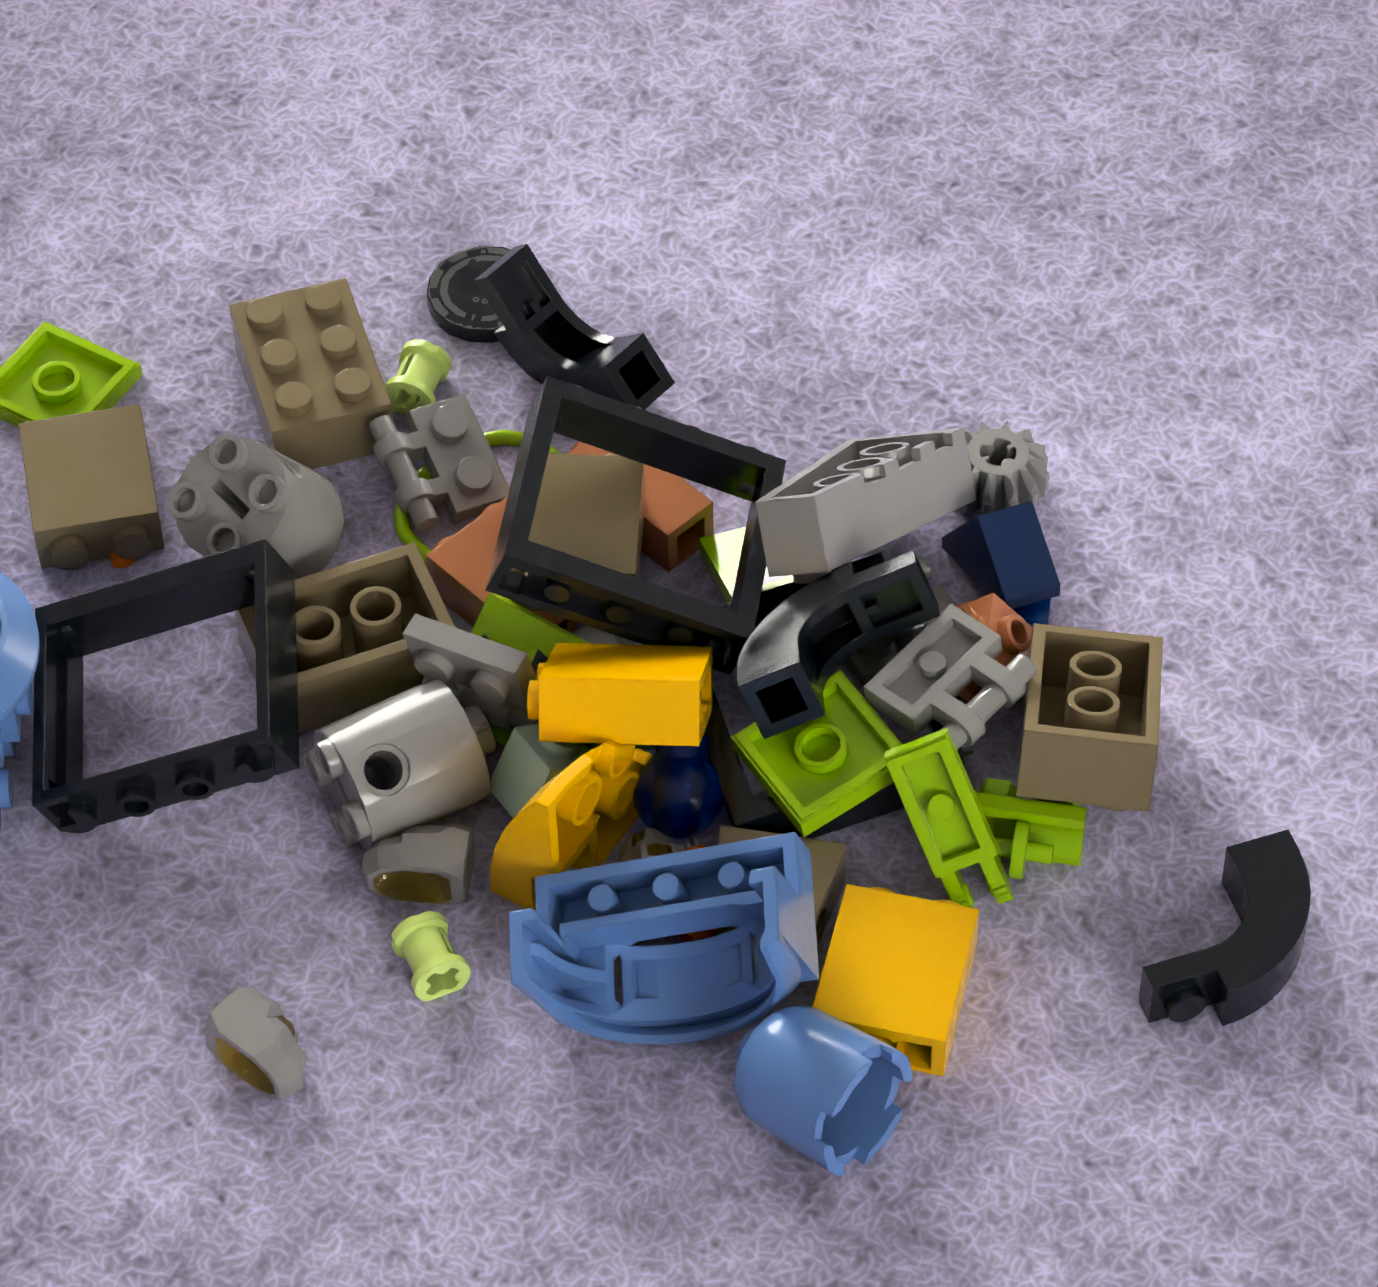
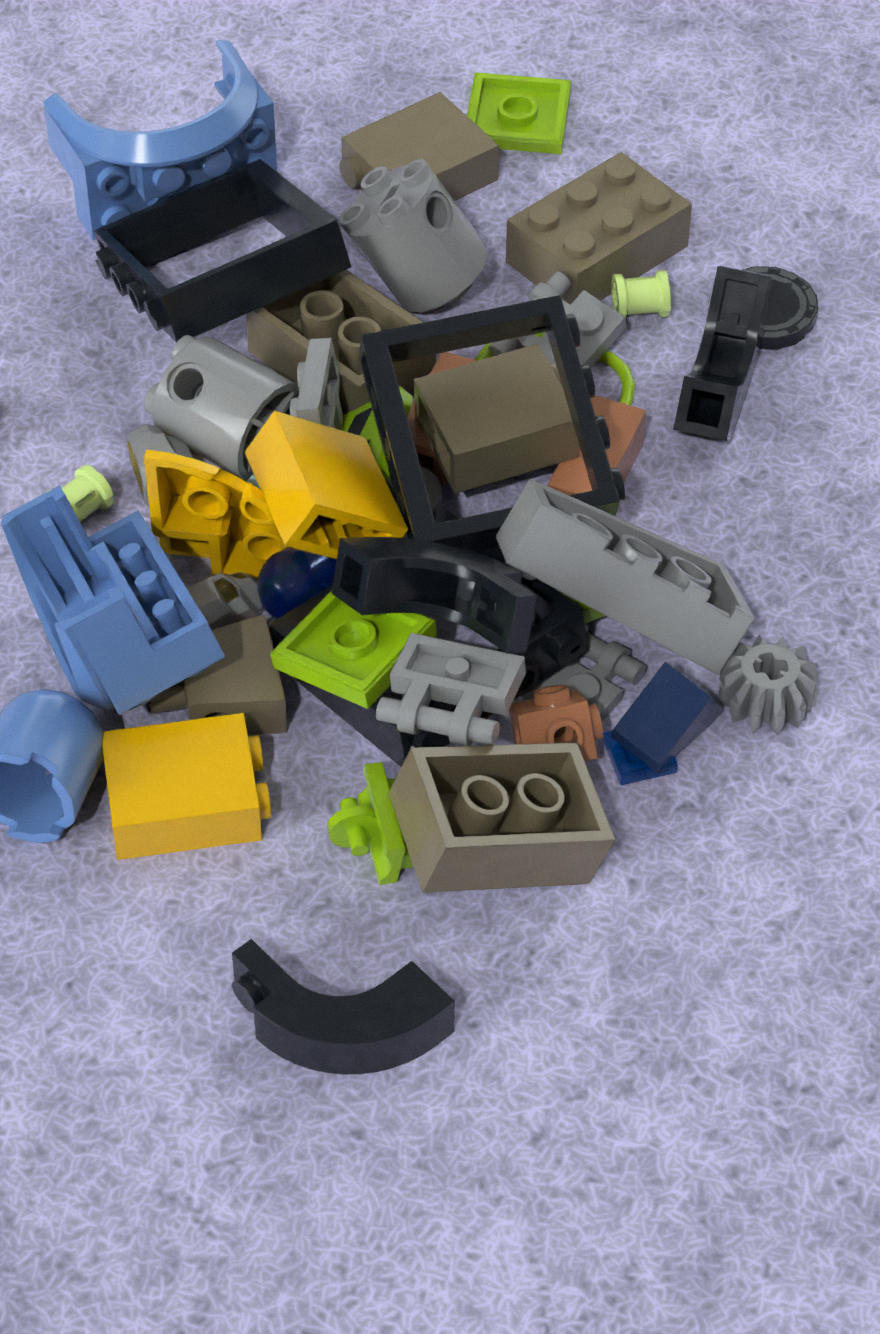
camera: 65 degrees right, 0 degrees up
(947, 815) = (327, 753): lime hinge -> none

